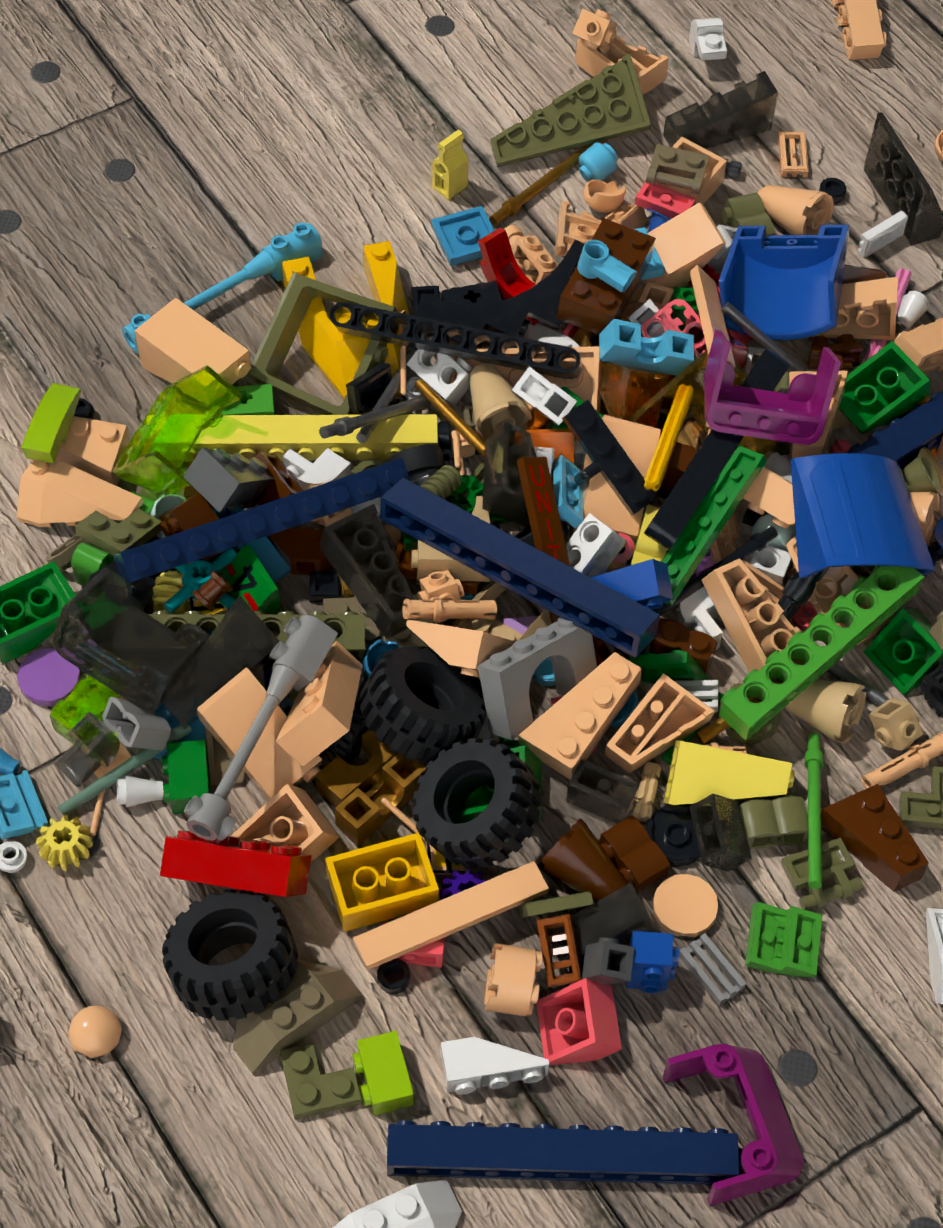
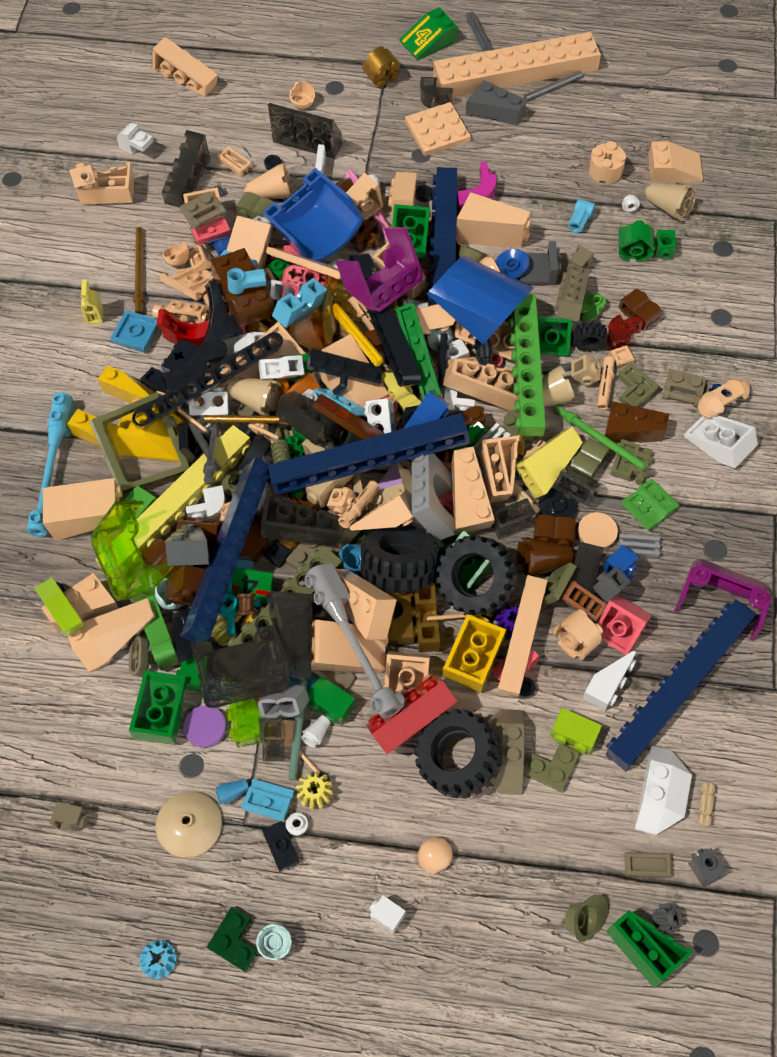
camera: 45 degrees left, 5 degrees up
(115, 536) = (162, 627): olive plate -> none
(586, 114) = (124, 221): olive wing -> none
(598, 162) = (154, 241): medium azure head -> none
(759, 336) = (327, 255): flat silver bar -> none

